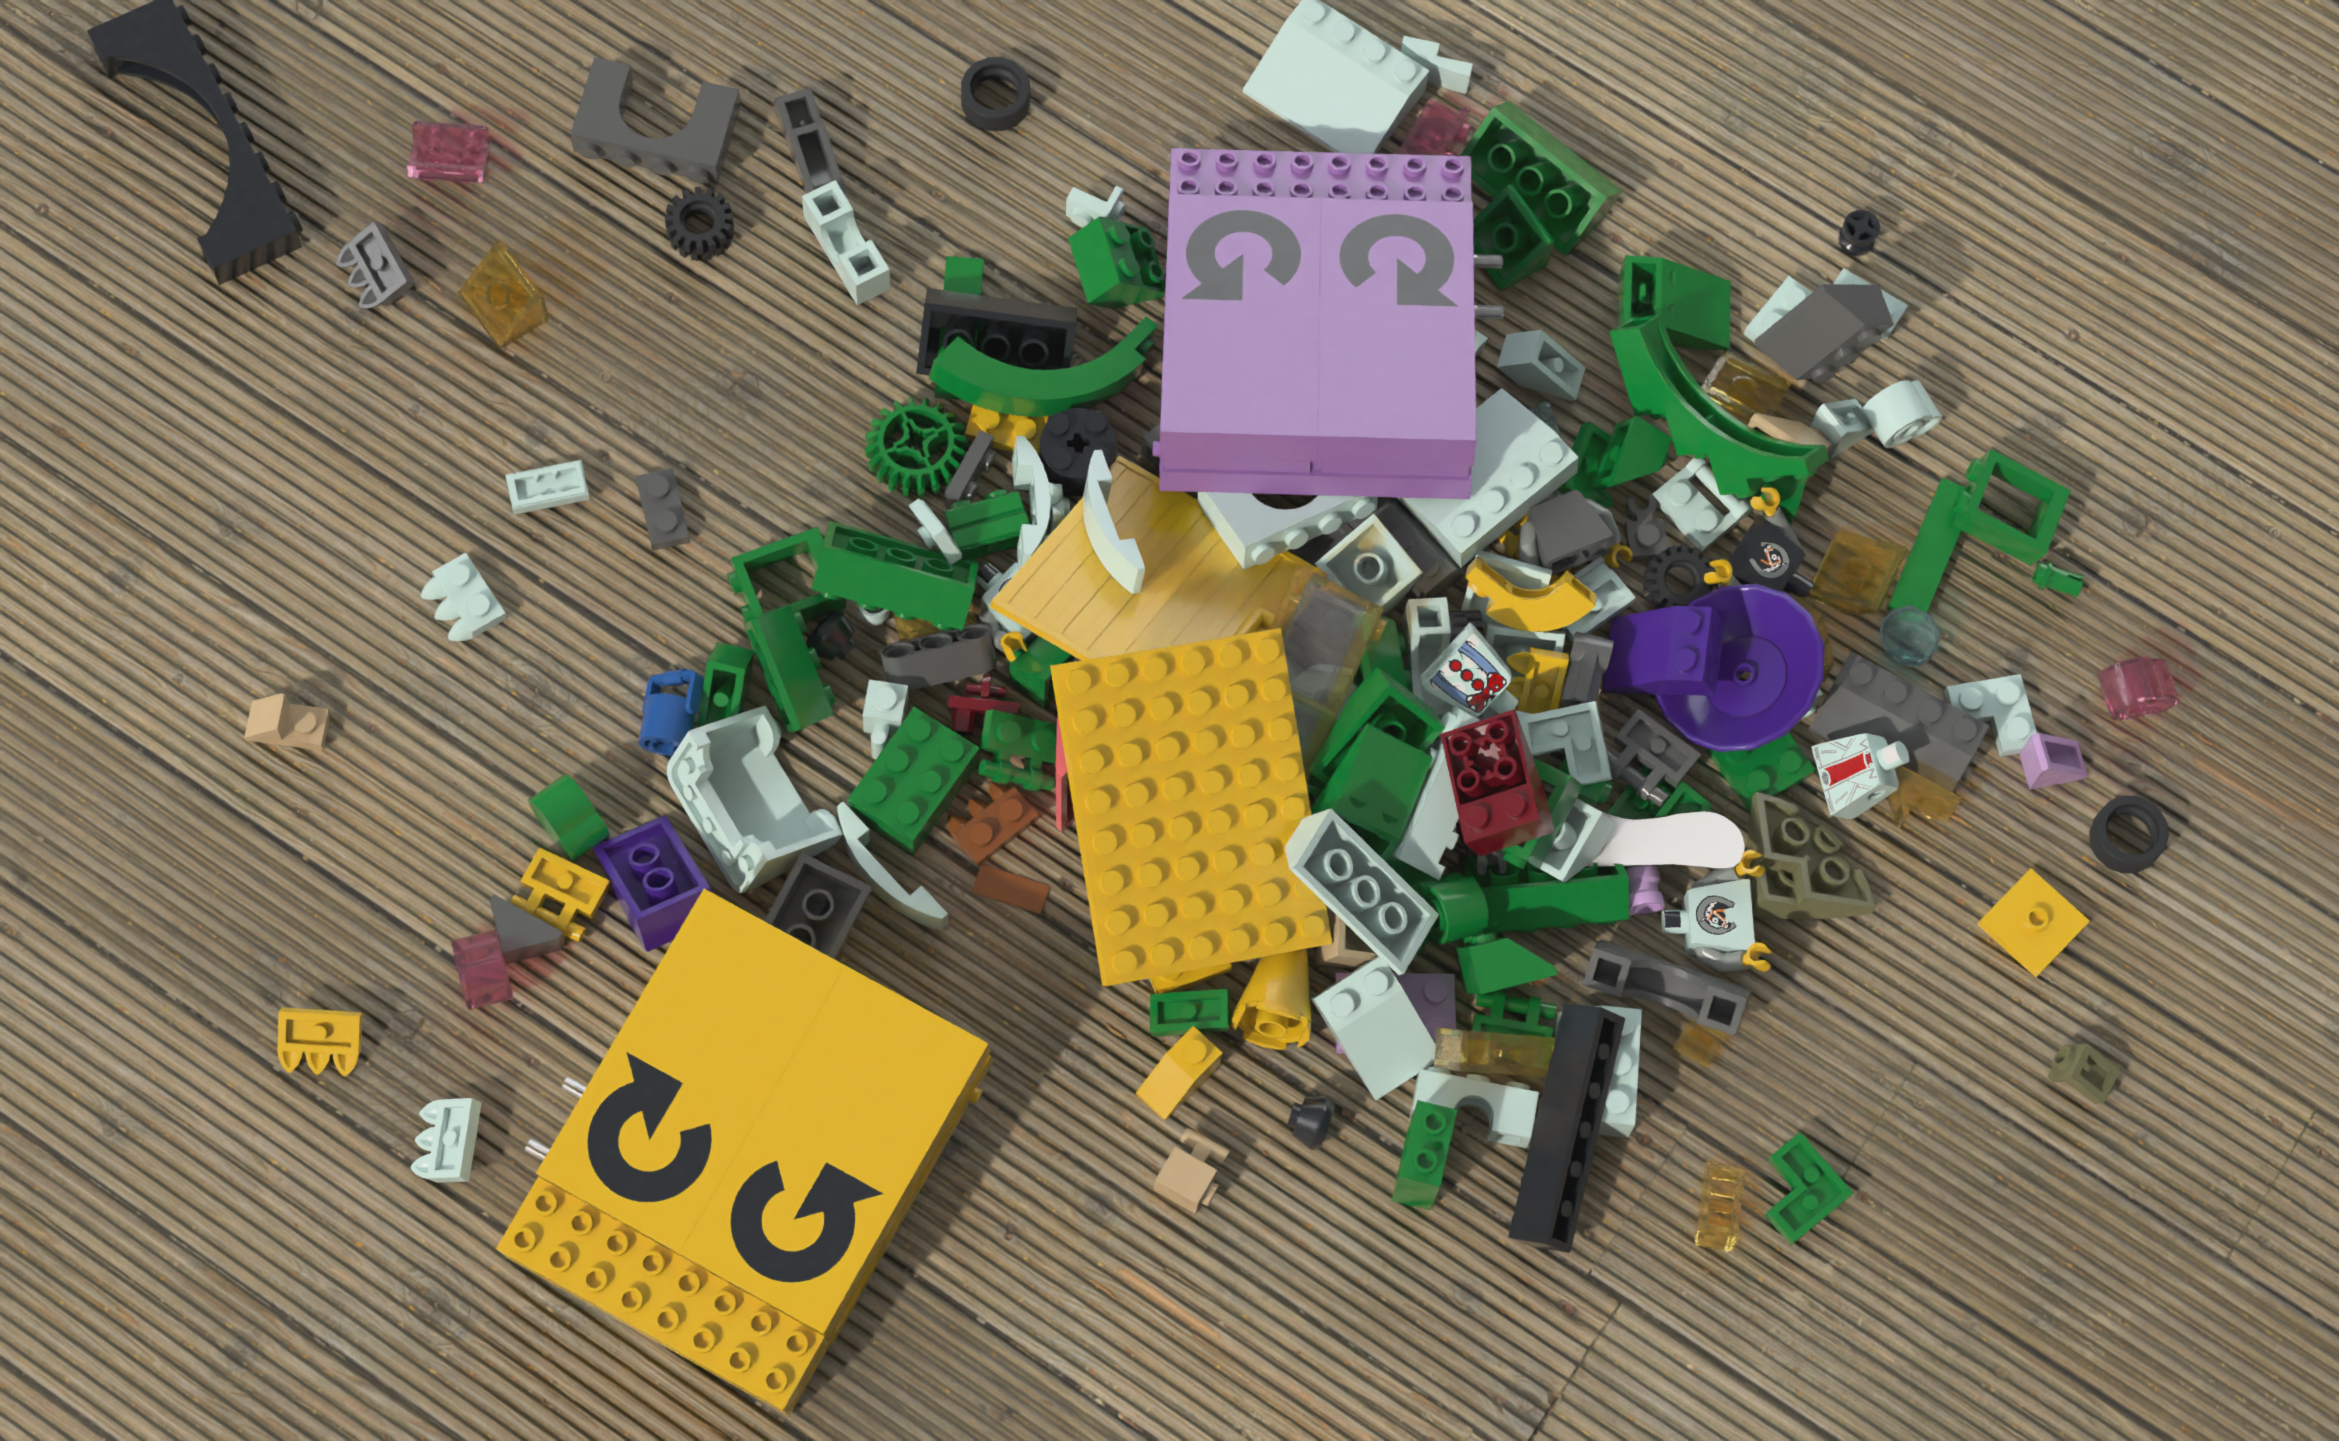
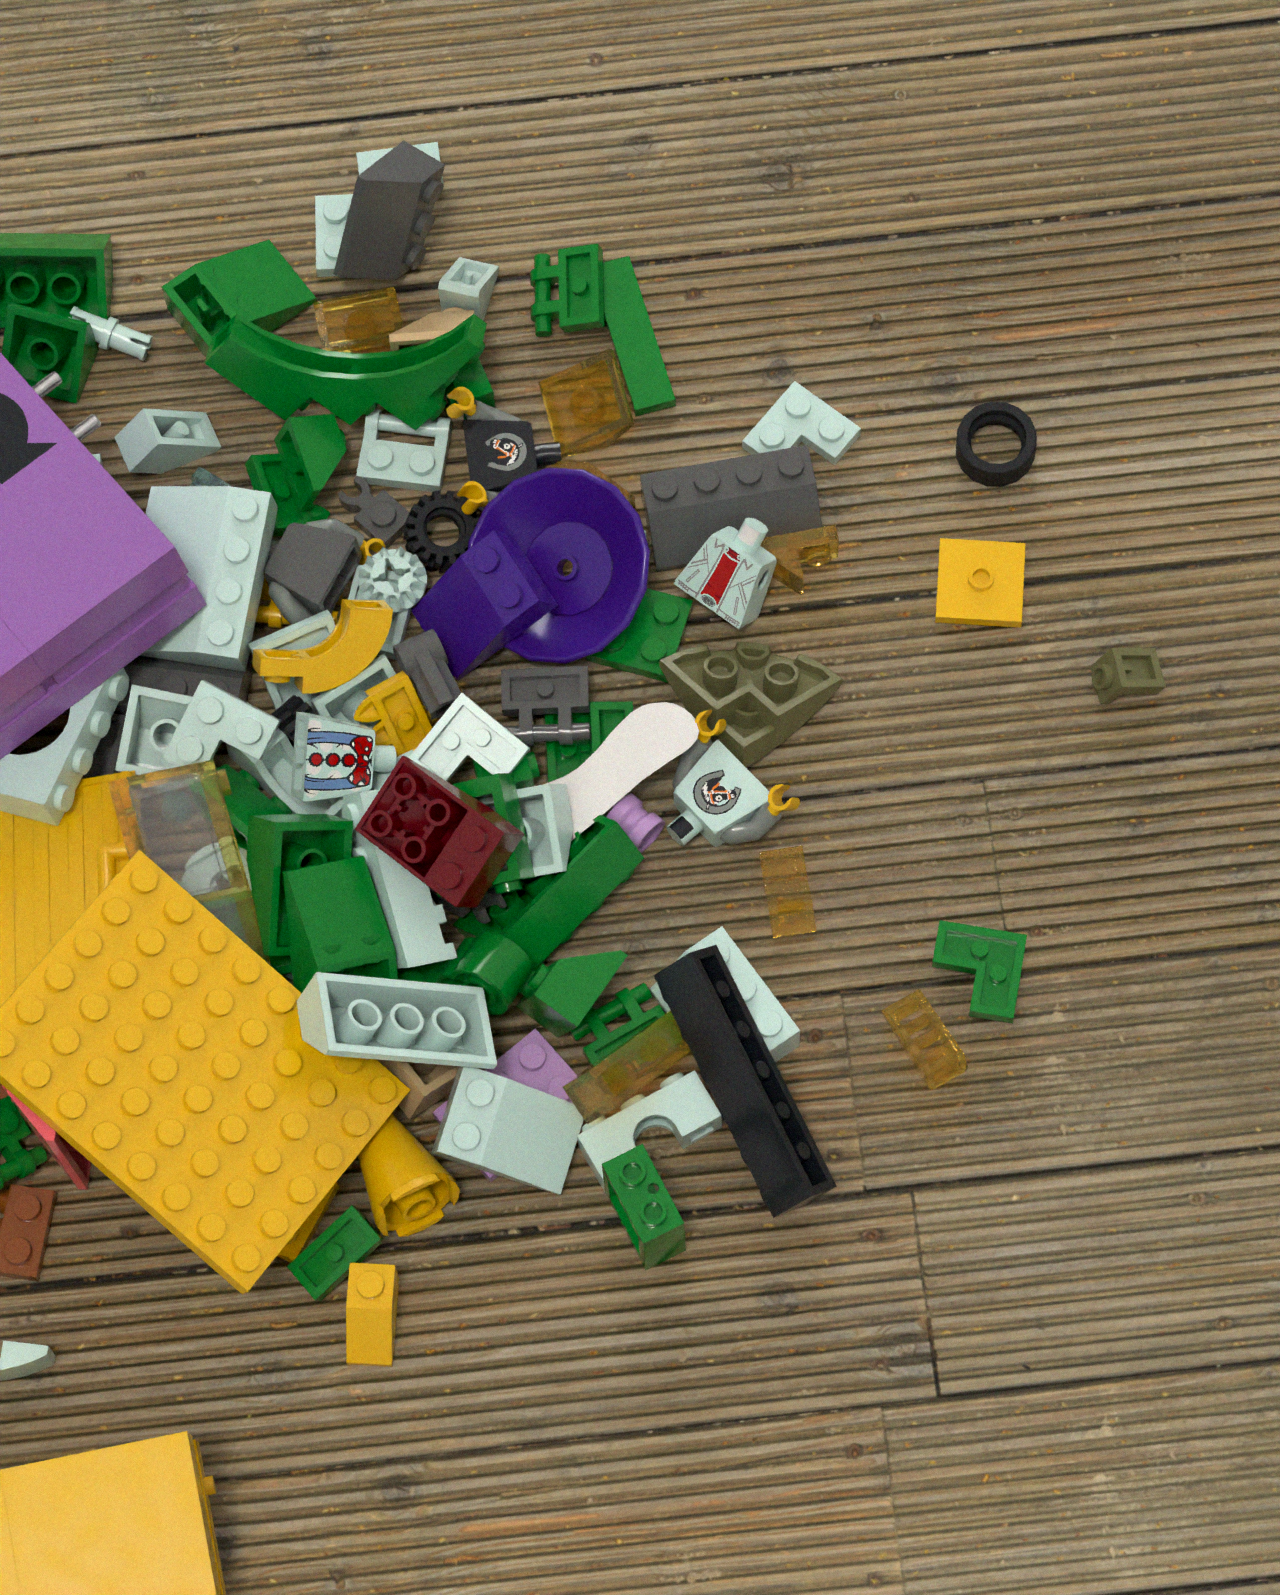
camera: 30 degrees left, 0 degrees up
(1010, 889) = (84, 1277): dark orange sticker -> none
(1186, 1176) = (455, 1399): tan brick -> none
(1311, 1120) = (520, 1258): black cone -> none
(1414, 584) = (215, 718): none -> light aqua plate
(1564, 261) = (112, 334): none -> light aqua pin
(1624, 600) = (410, 586): none -> light aqua gear
(1641, 976) = (752, 876): dark grey arch -> none
(1861, 223) = (344, 101): black wheel -> none
(1901, 413) = (510, 237): light aqua piece -> none
(1909, 636) = (676, 423): clear light blue hair -> none
(1919, 489) = (580, 290): none -> green plate
(2023, 547) = (675, 277): green window -> none
(2051, 761) = (881, 434): lavender slope -> none
(2057, 579) = (757, 275): green pin -> none
(2137, 688) = (900, 314): clear pink piece -> none

